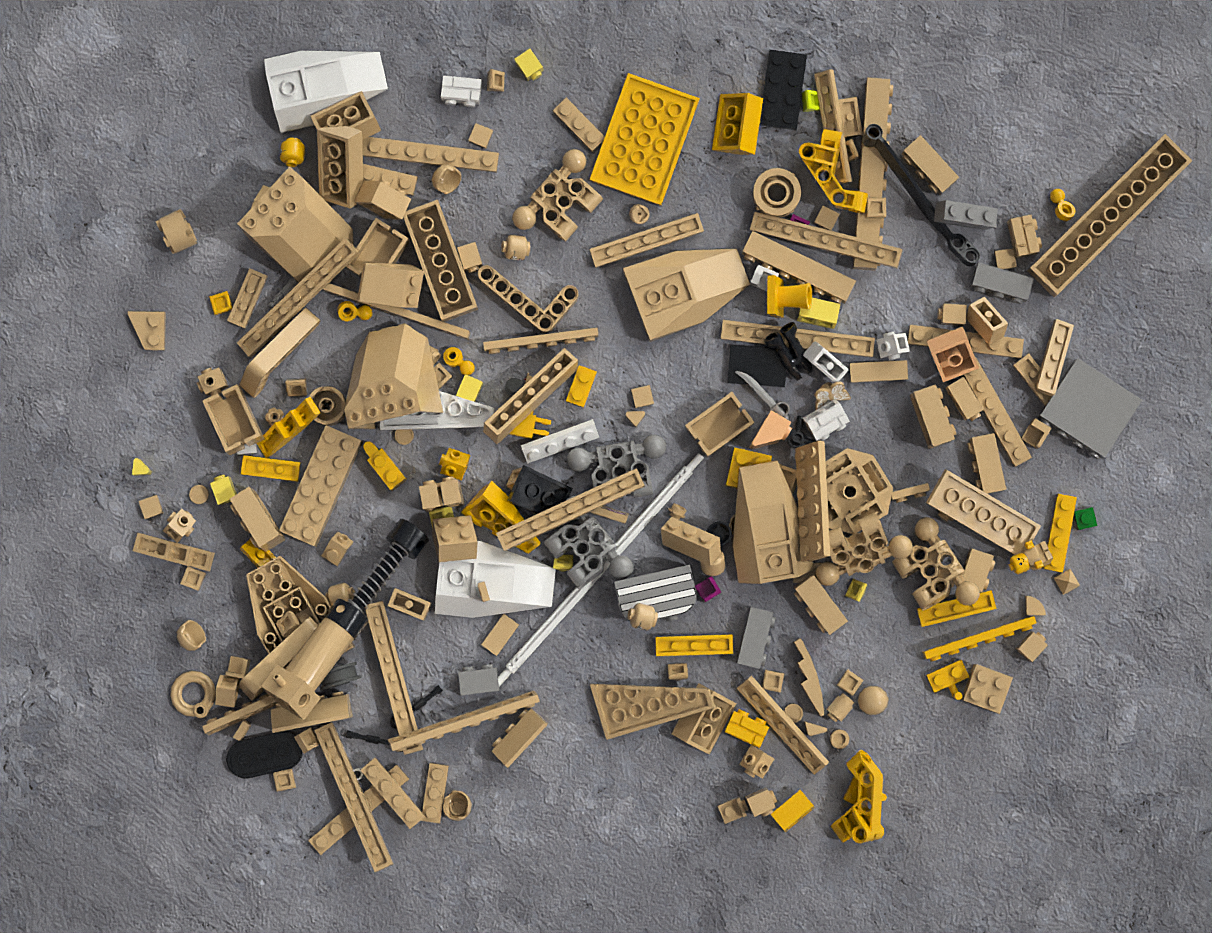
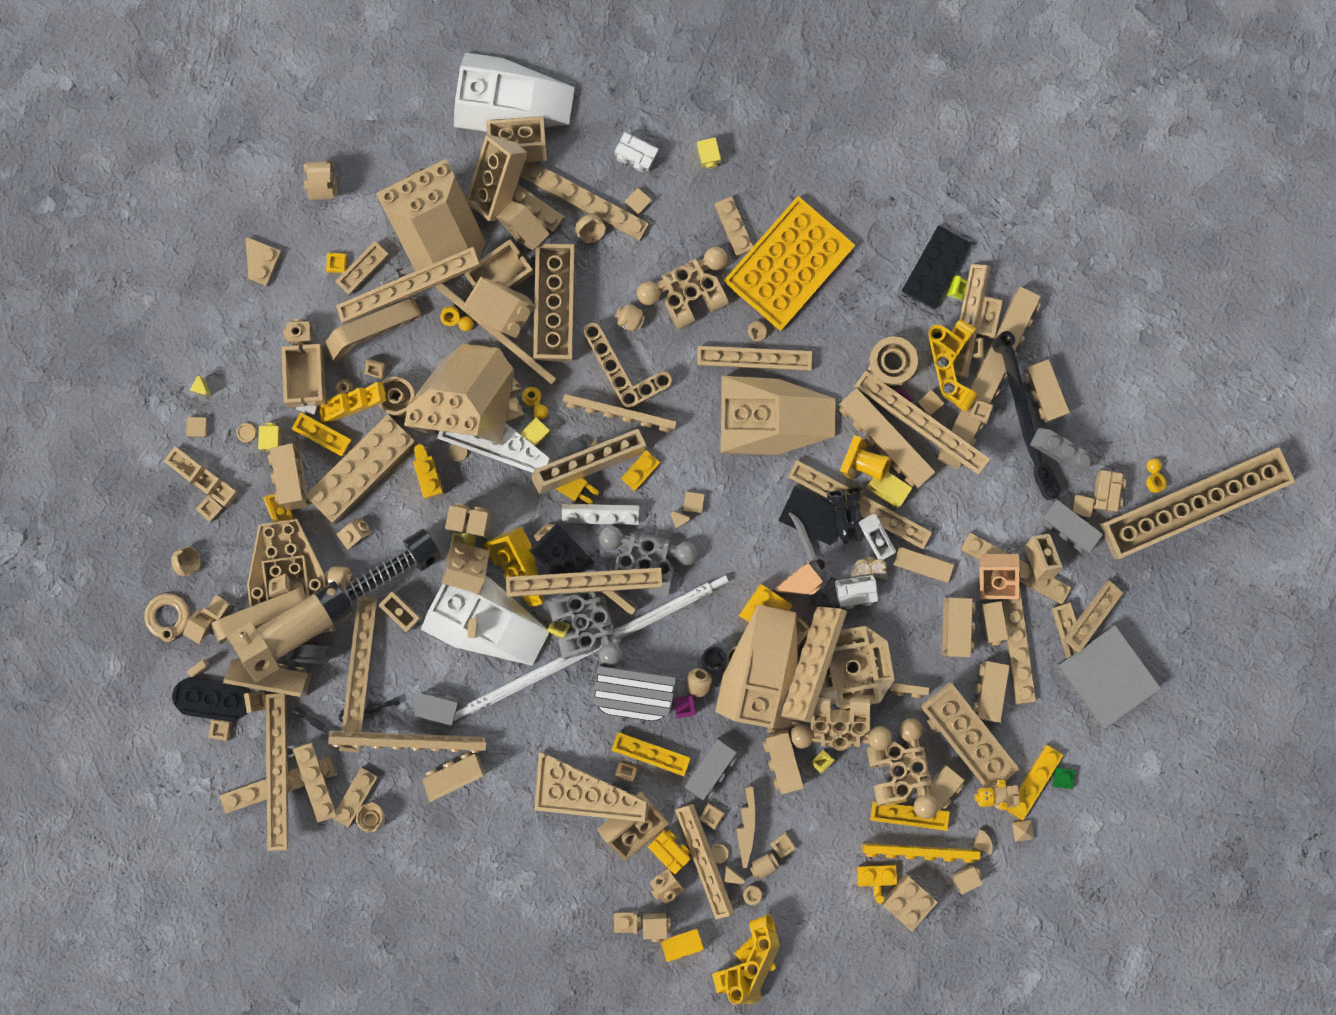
camera: 15 degrees right, 0 degrees up
(179, 525) = (215, 454): tan brick -> none
(232, 717) = (194, 652): tan plate -> none
(292, 152) = (457, 148): yellow head -> none
(454, 463) = (493, 496): yellow brick -> none
(470, 257) = (583, 310): tan brick -> none
(495, 80) = (672, 155): tan slope -> none
(500, 634) = (474, 673): tan tile -> none
(642, 616) = (611, 710): tan head -> none
(677, 511) = (684, 622): tan plate -> none
(691, 541) = (685, 655): tan brick -> none
(719, 424) = (755, 556): tan piece -> none
(737, 123) = (881, 282): yellow slope -> none
(760, 277) = (847, 433): white panel -> none
(873, 700) = (798, 871): tan hair -> none
(892, 345) = (946, 546): white brick -> none
(952, 314) = (1013, 538): tan brick -> none
(1036, 433) = (1048, 680): tan panel -> none

